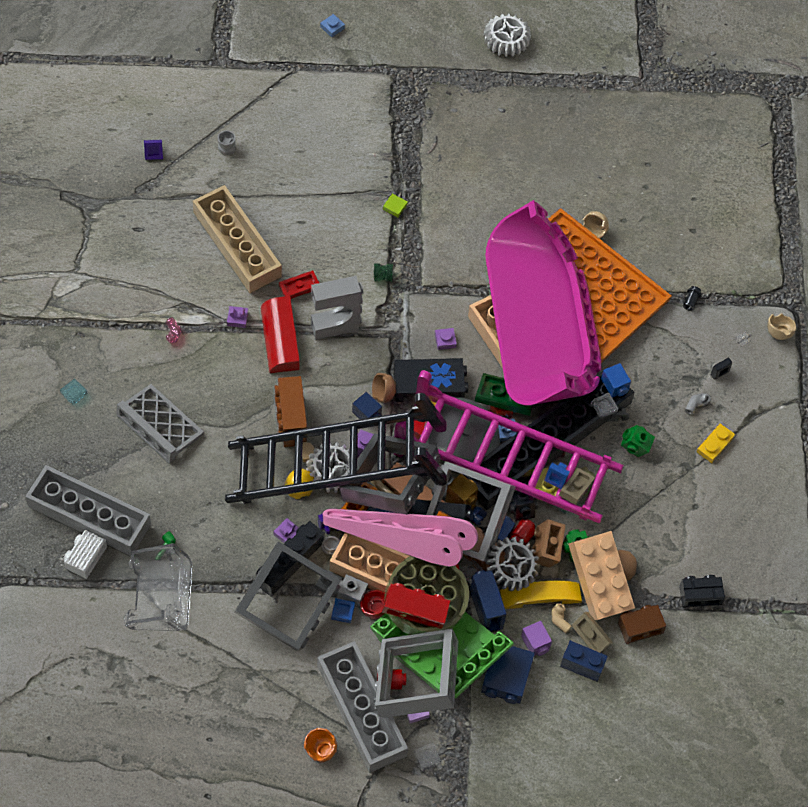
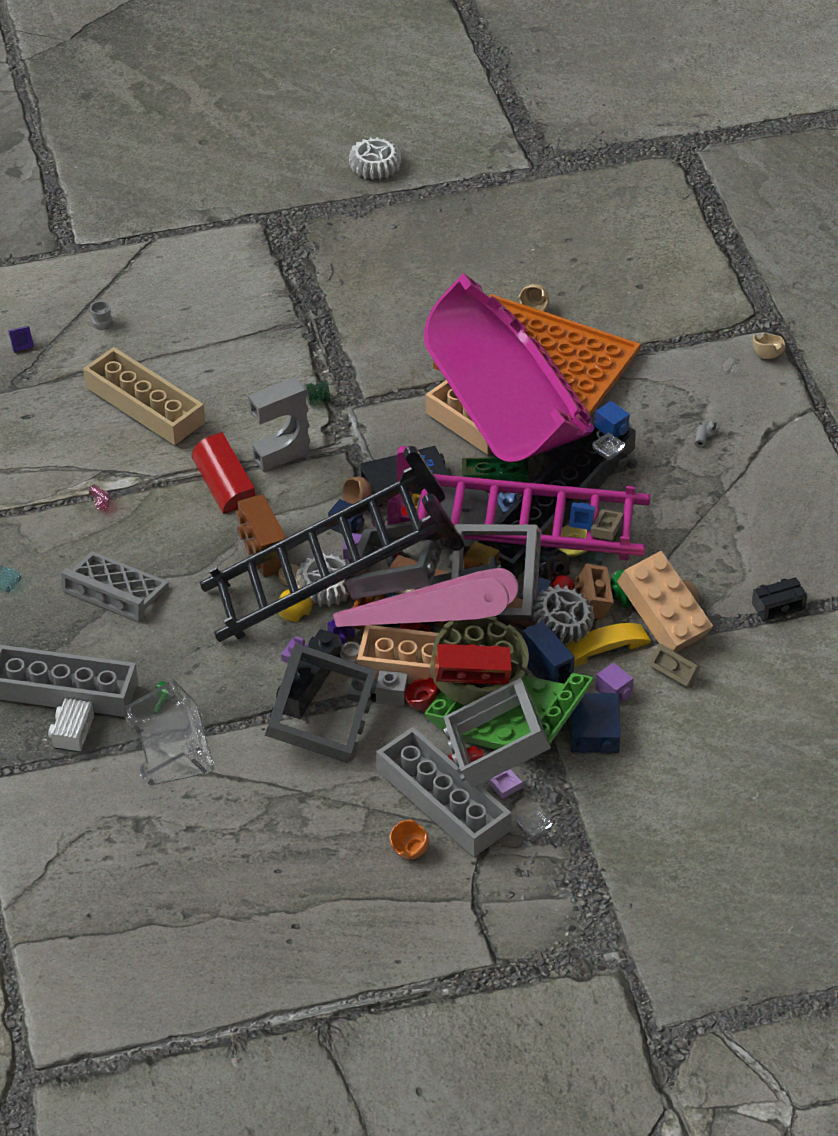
camera: 10 degrees left, 15 degrees down
(237, 317) = (168, 469): medium lavender tile -> none
(298, 285) = (229, 423): red plate -> none
(332, 25) = (180, 191): medium blue plate -> none
(343, 610) = (387, 709): blue plate -> none
(395, 205) = (308, 332): lime tile -> none
(445, 338) = (408, 437): medium lavender plate -> none
(558, 618) = (631, 662): tan arm -> none
(583, 661) = (675, 691): dark blue brick -> none
(637, 440) = (655, 478): green brick -> none
(641, 623) = (725, 643): reddish brown brick -> none
(692, 297) = (663, 339): black pin -> none
(715, 443) = (739, 465): yellow plate -> none
(721, 368) = (719, 395): black tile -> none

